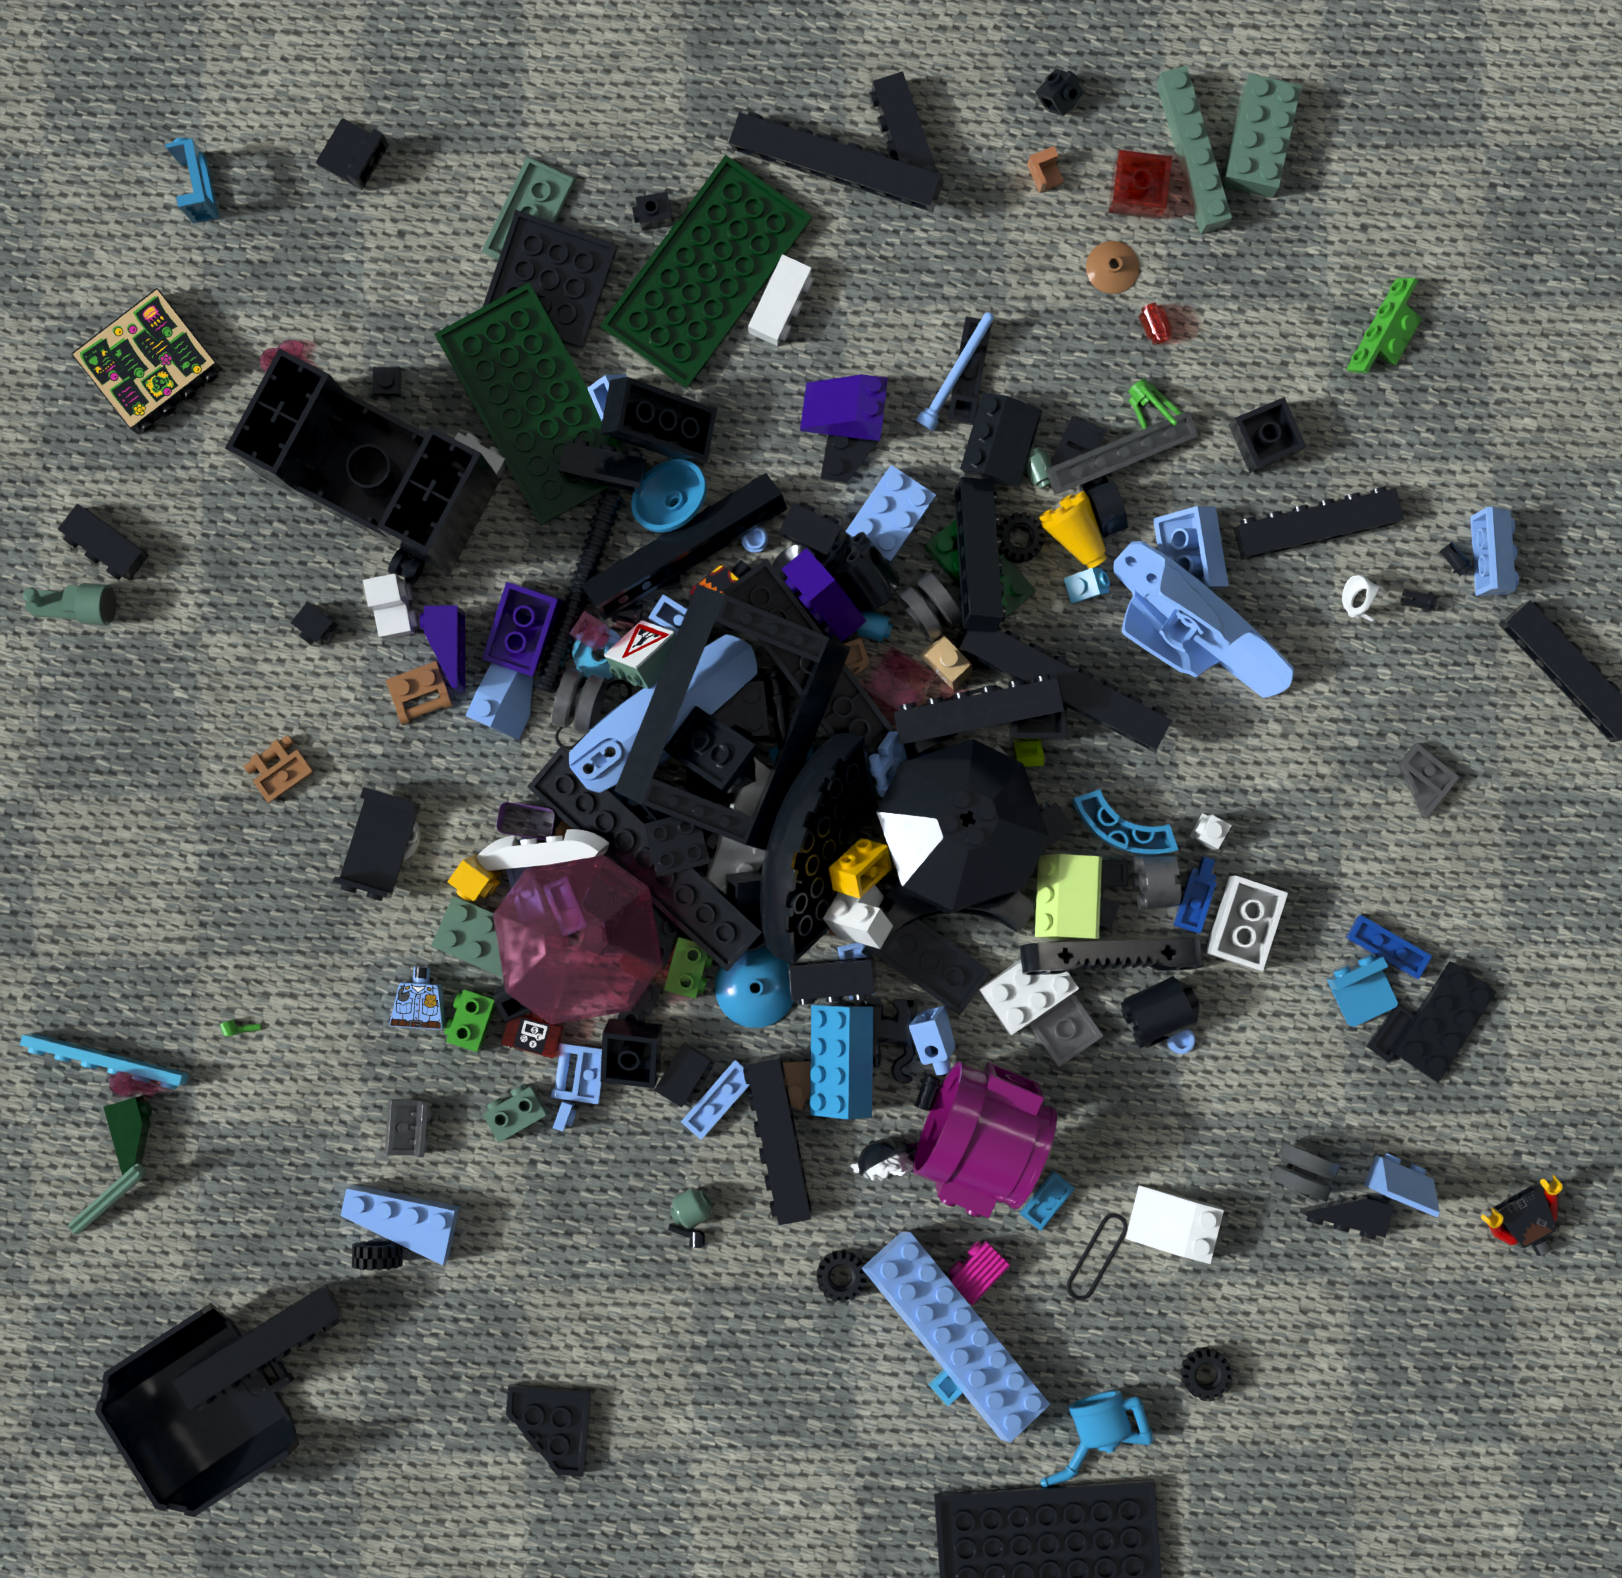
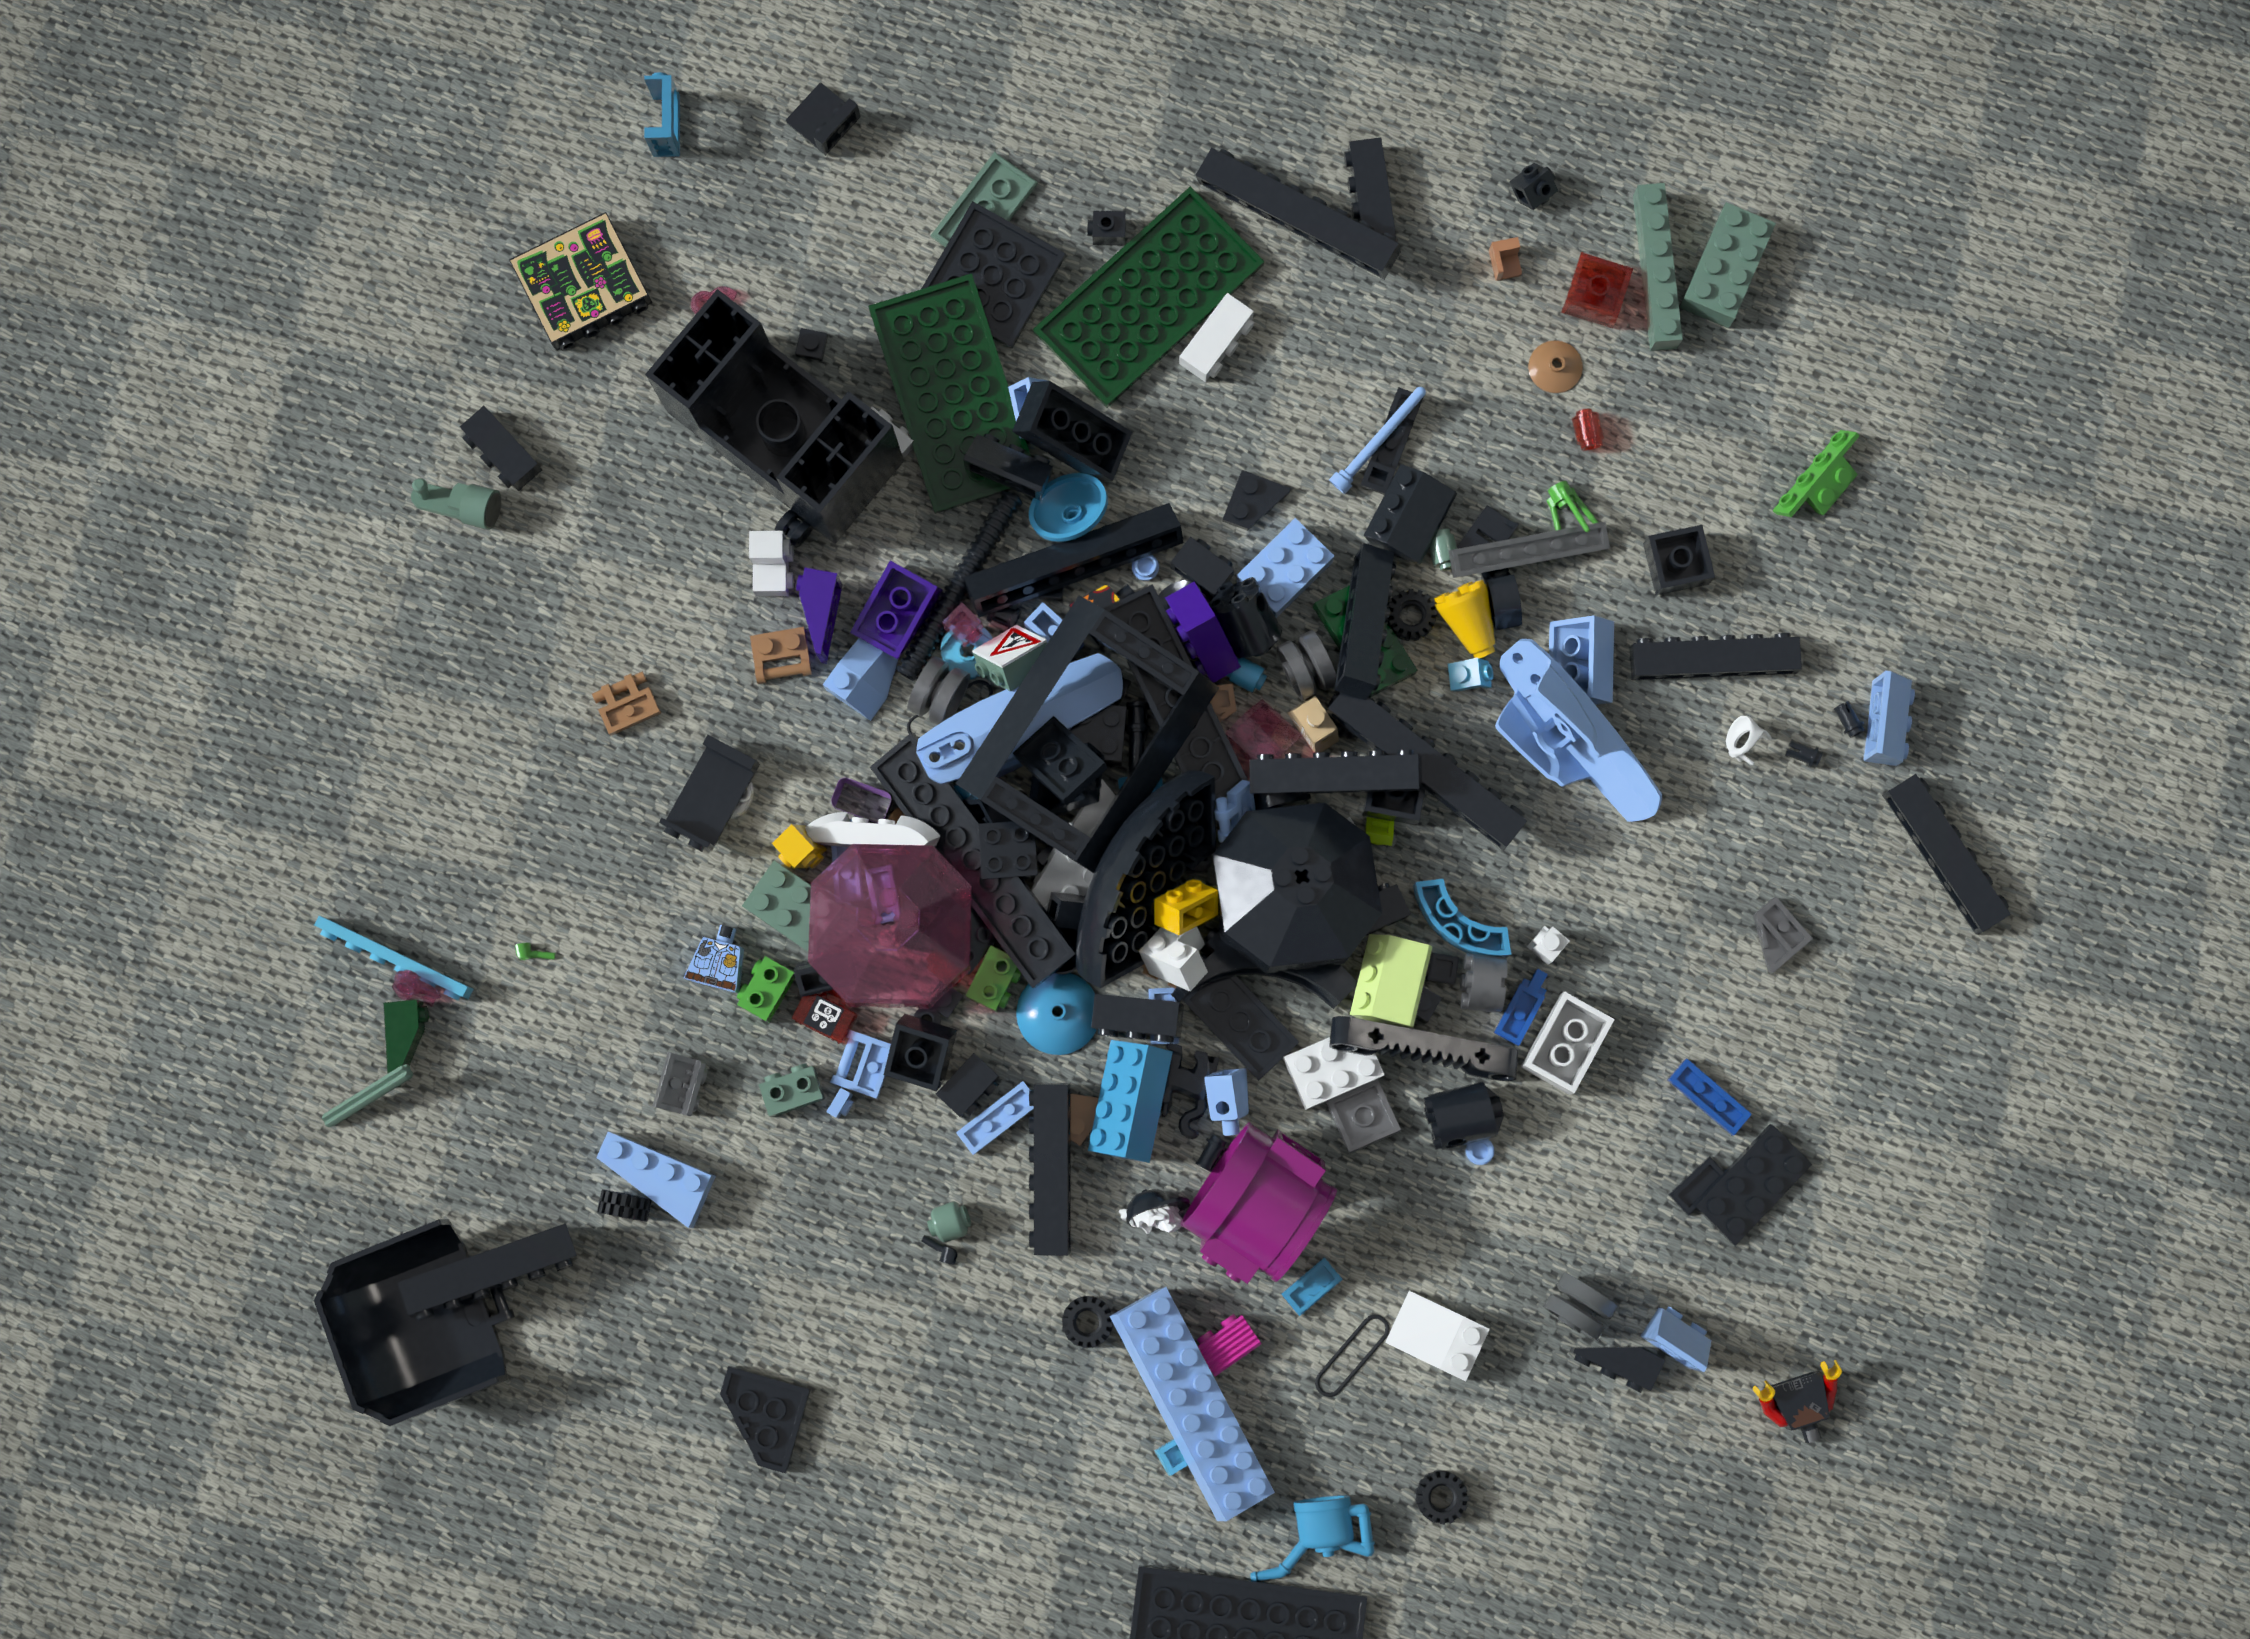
camera: 20 degrees right, 5 degrees down
(314, 625) = (691, 568): black brick -> none
(845, 406) = (1261, 453): dark purple slope -> none
(1362, 990) = (1674, 1136): dark azure bracket -> none

